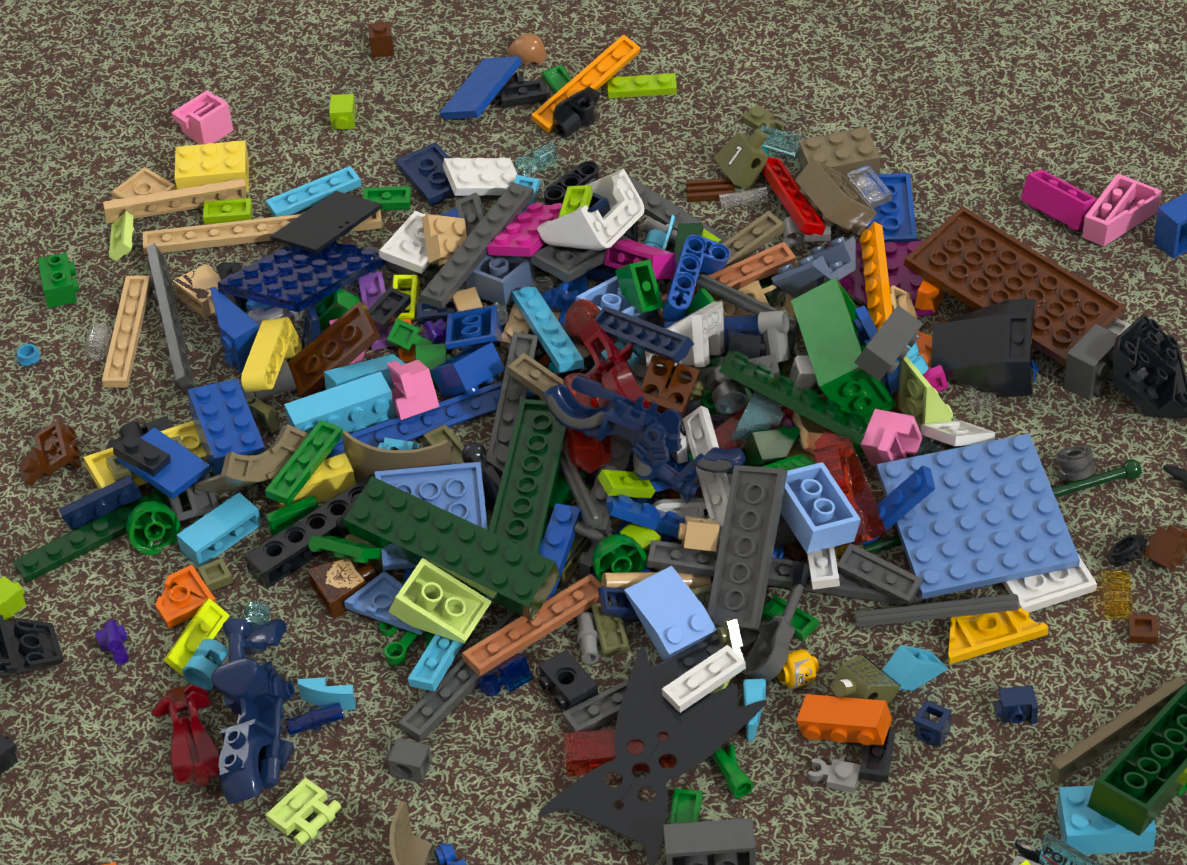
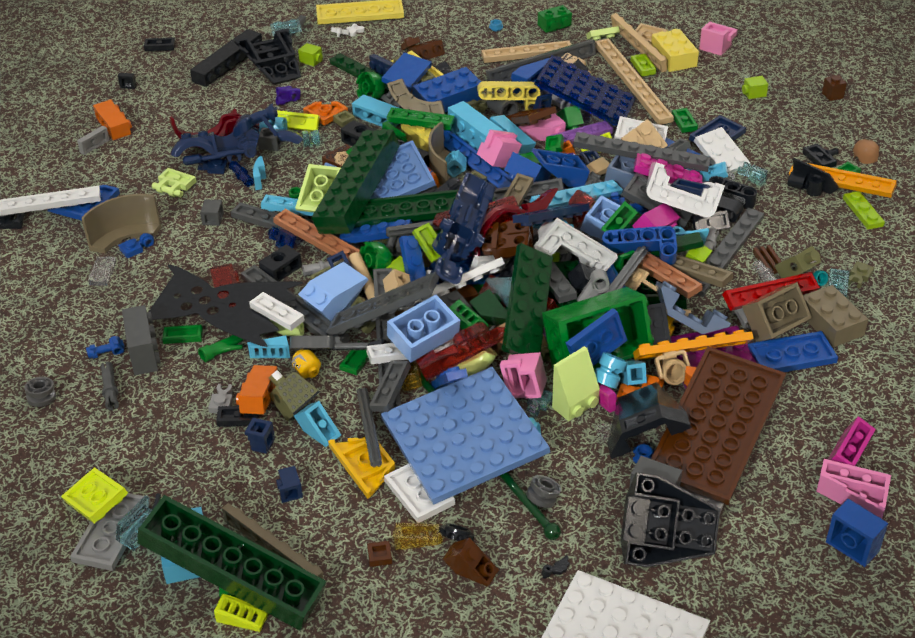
camera: 75 degrees right, 5 degrees down
(97, 341) = (511, 41): clear brick -> none
(141, 454) = (405, 59): black plate -> none
(313, 192) = (675, 92): medium azure plate -> none
(326, 222) = (642, 96): black container -> none
(388, 308) = (569, 130): black plate -> none
(481, 87) = (812, 137): blue tile -> none
(576, 197) = (691, 177): lime plate -> none
(729, 635) = (318, 320): plate -> none
(870, 186) = (802, 332): clear plate -> none
(890, 344) = (580, 329): dark grey brick -> none
(957, 433) = (548, 414): white tile -> none

